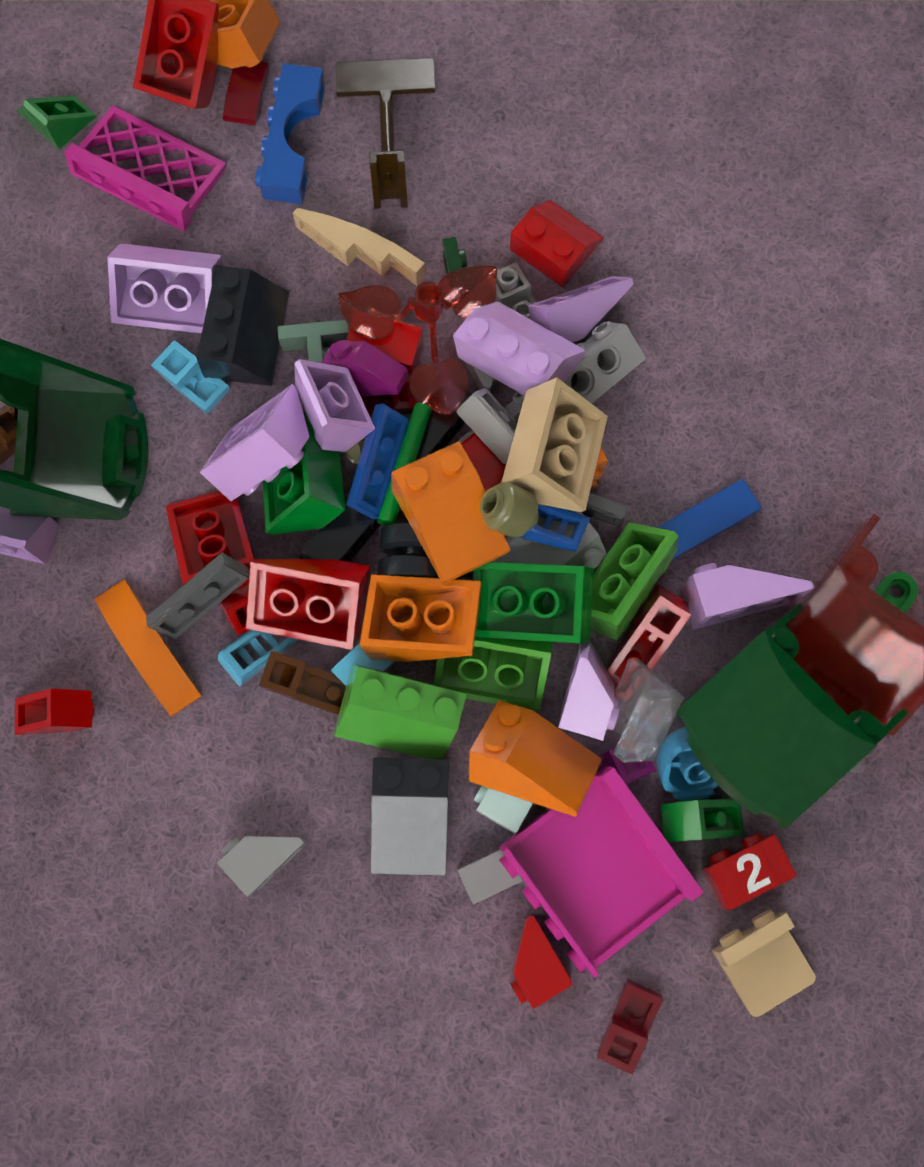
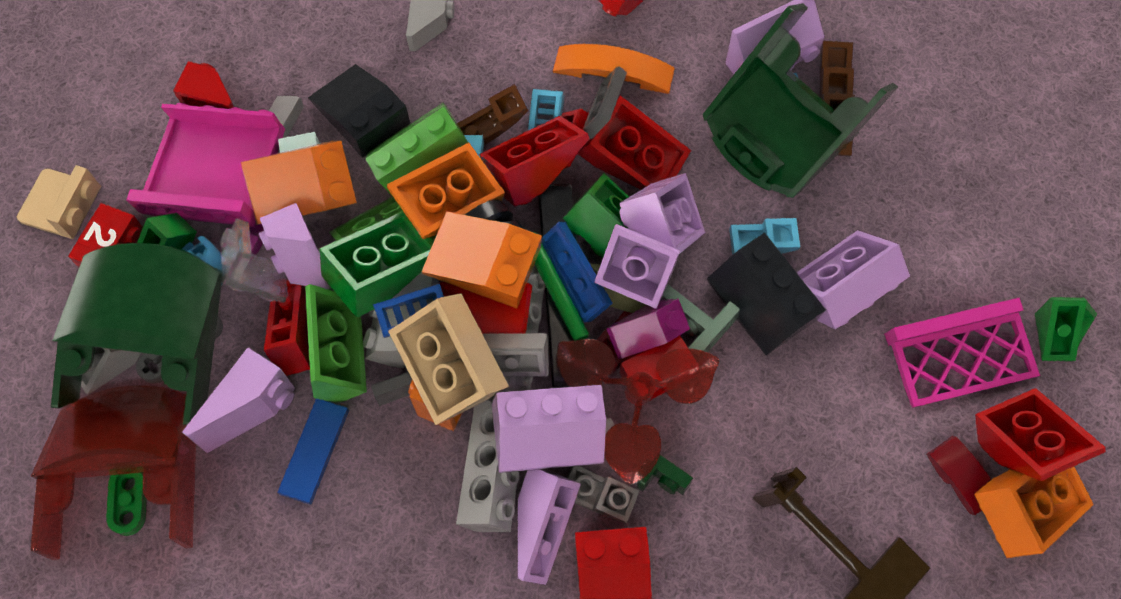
camera: 140 degrees right, 10 degrees down
(298, 97) = (922, 502): blue arch -> none
(351, 241) = (762, 421): tan slope -> none
(509, 509) = (437, 276): olive head -> none
(629, 1026) = (124, 108): dark red slope -> none

